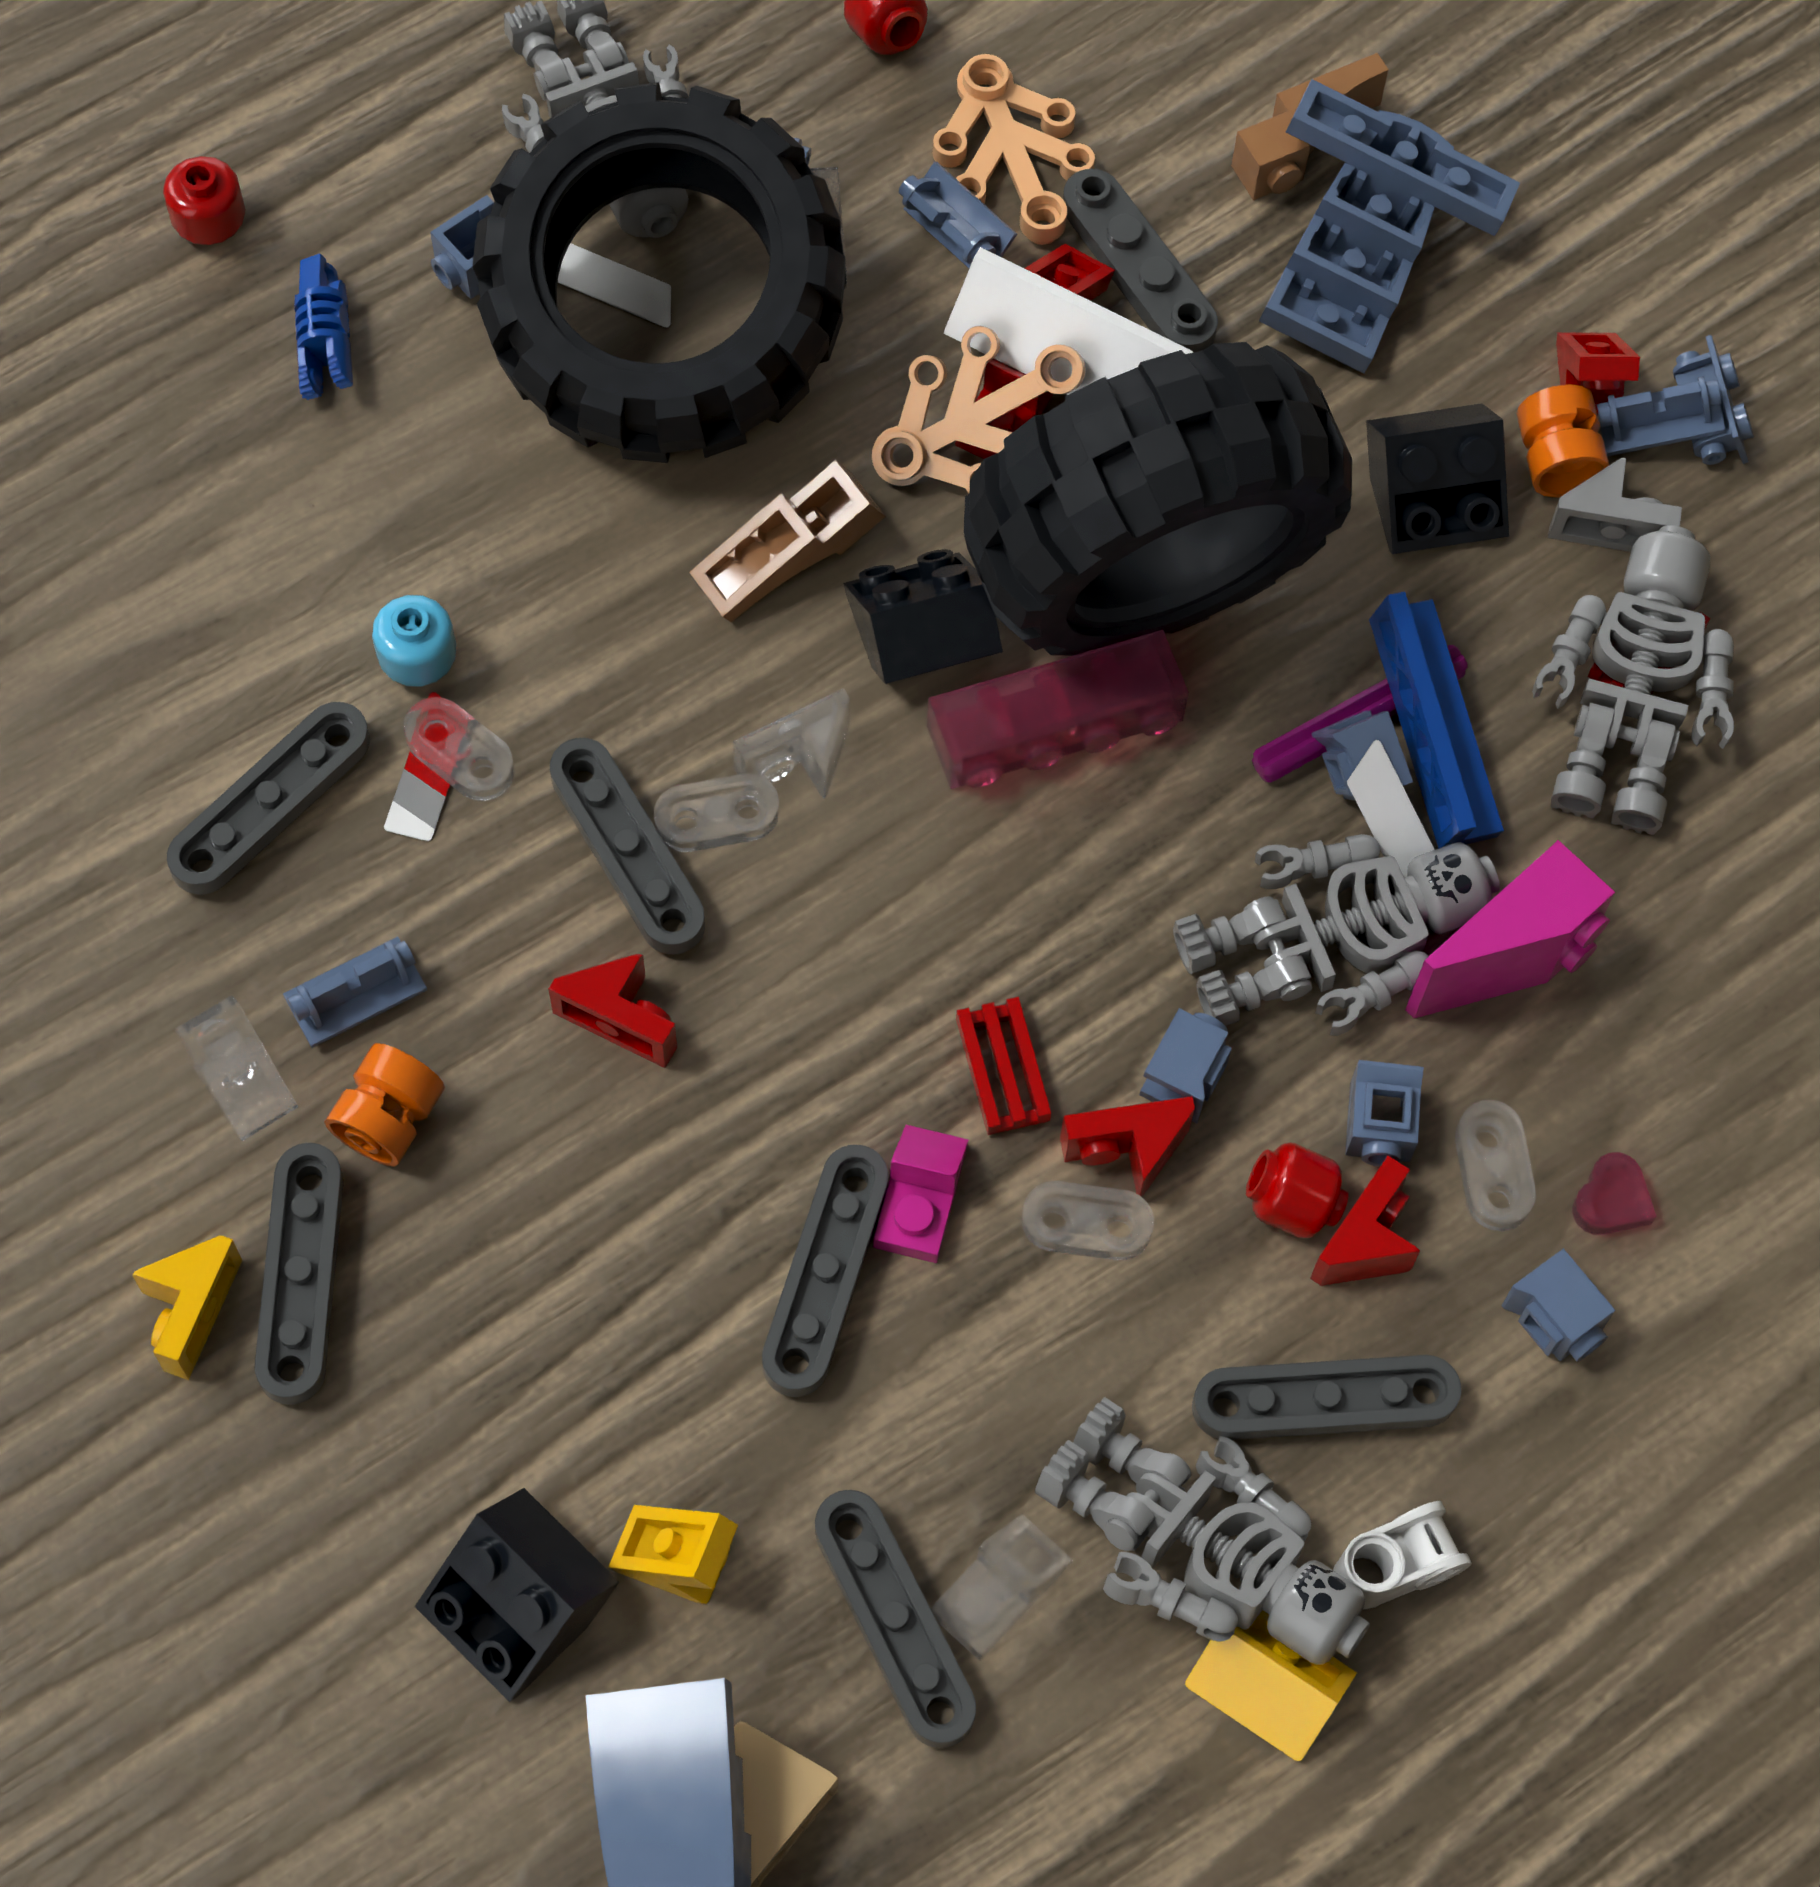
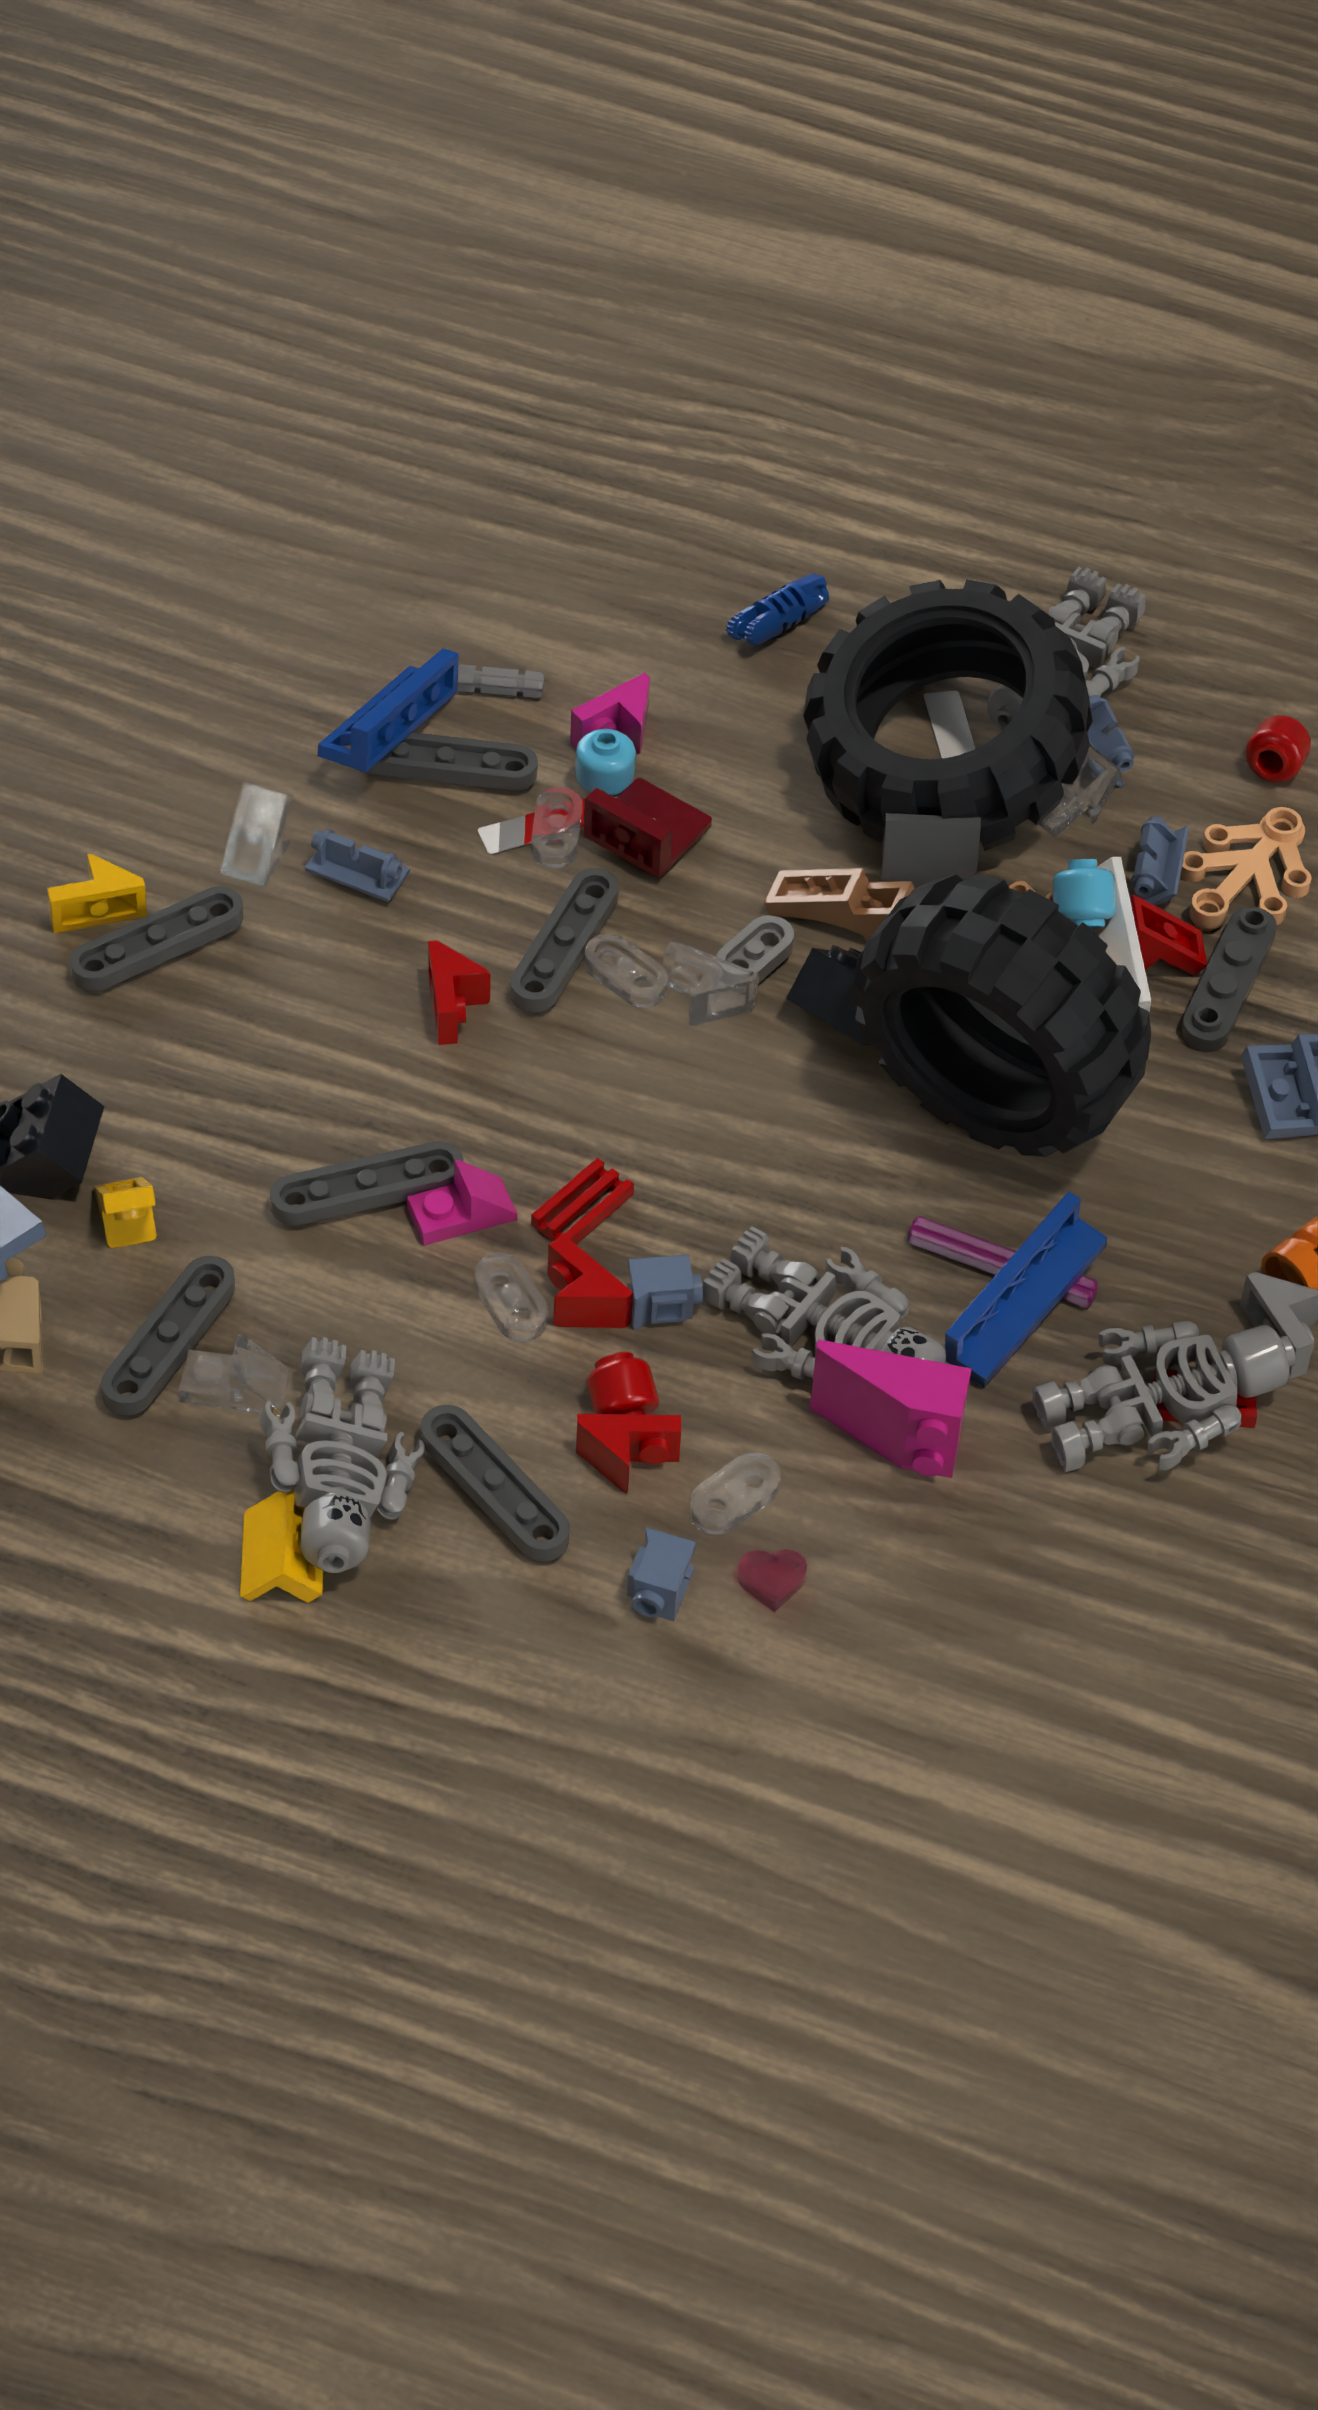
camera: 55 degrees right, 15 degrees down
(184, 799) = (393, 713): none -> blue fence
(192, 668) = (500, 681): none -> light grey axle
(204, 200) = (809, 508): red head -> none
(352, 575) = (617, 709): none -> dark pink slope
(388, 1082) = (309, 913): orange wheel -> none
(527, 658) = (644, 825): none -> dark red bracket
(787, 675) = (749, 948): none -> light grey plate
(812, 420) = (929, 848): none -> dark grey slope
(1017, 315) = (1085, 893): none -> medium azure head
(1057, 710) = (852, 1097): clear pink brick -> none
(1350, 740) = (961, 1269): sand blue window -> none
(1379, 1138) = (719, 1412): sand blue window -> none
(1388, 808) = (937, 1294): white sticker -> none
(1410, 1551) = (422, 1578): white piece -> none
(1439, 477) = (1216, 1210): black slope -> none

